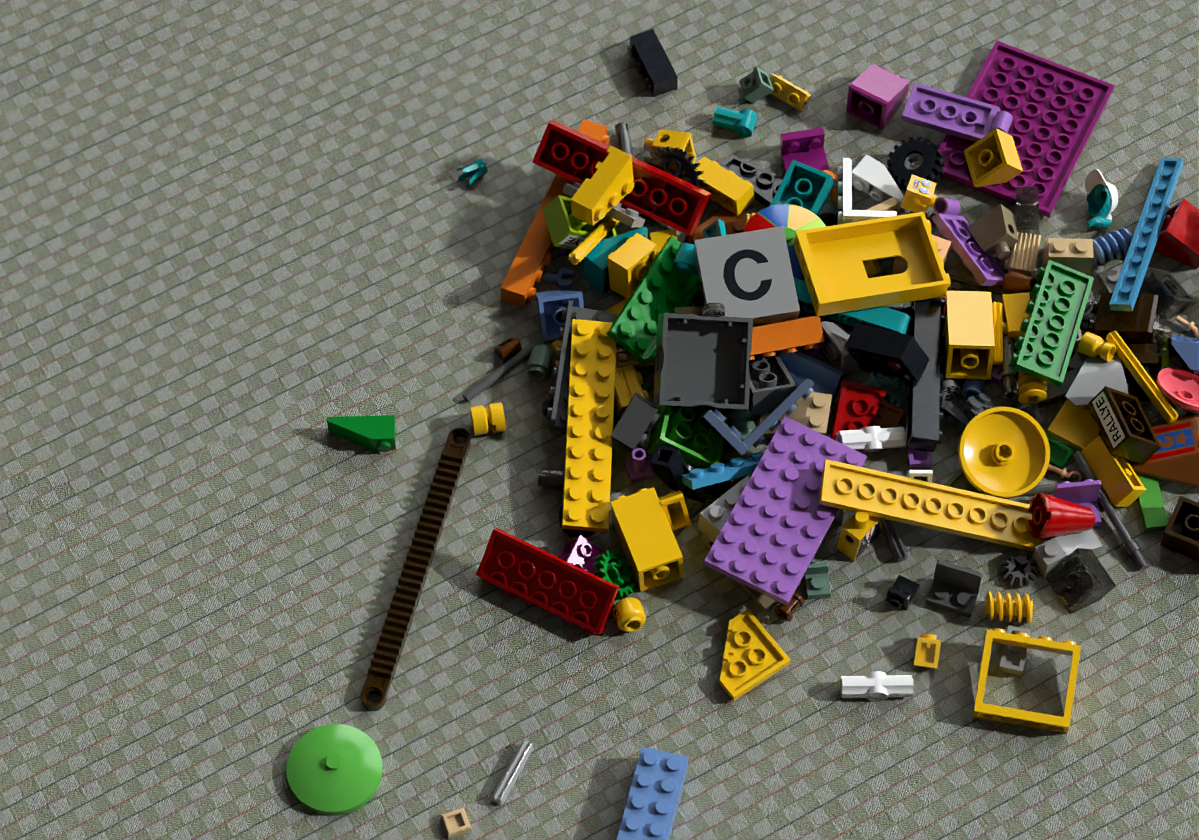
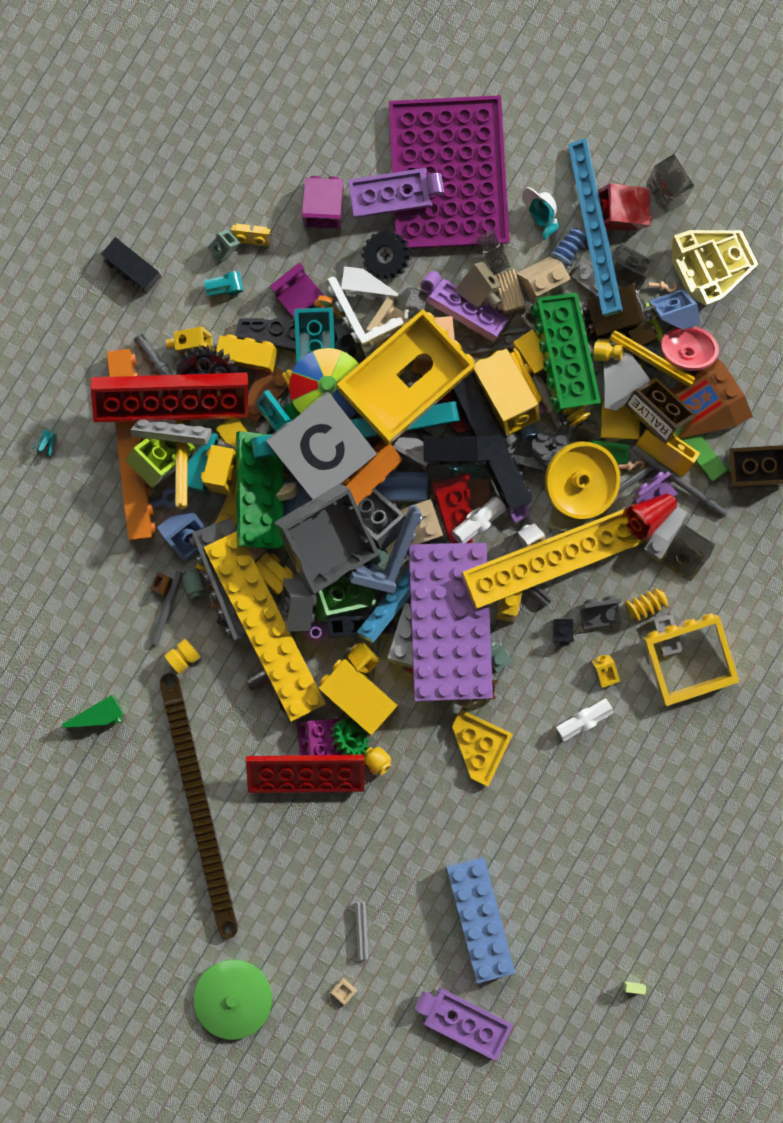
camera: 30 degrees left, 25 degrees up
(605, 188) = (169, 427): yellow wedge -> none
(713, 310) = (313, 494): clear smoke tile -> none
(919, 195) = (405, 286): yellow head -> none
(993, 159) = (444, 219): yellow slope -> none
(1017, 282) = (518, 320): dark orange cone -> none
(1017, 578) = (628, 567): dark grey gear -> none

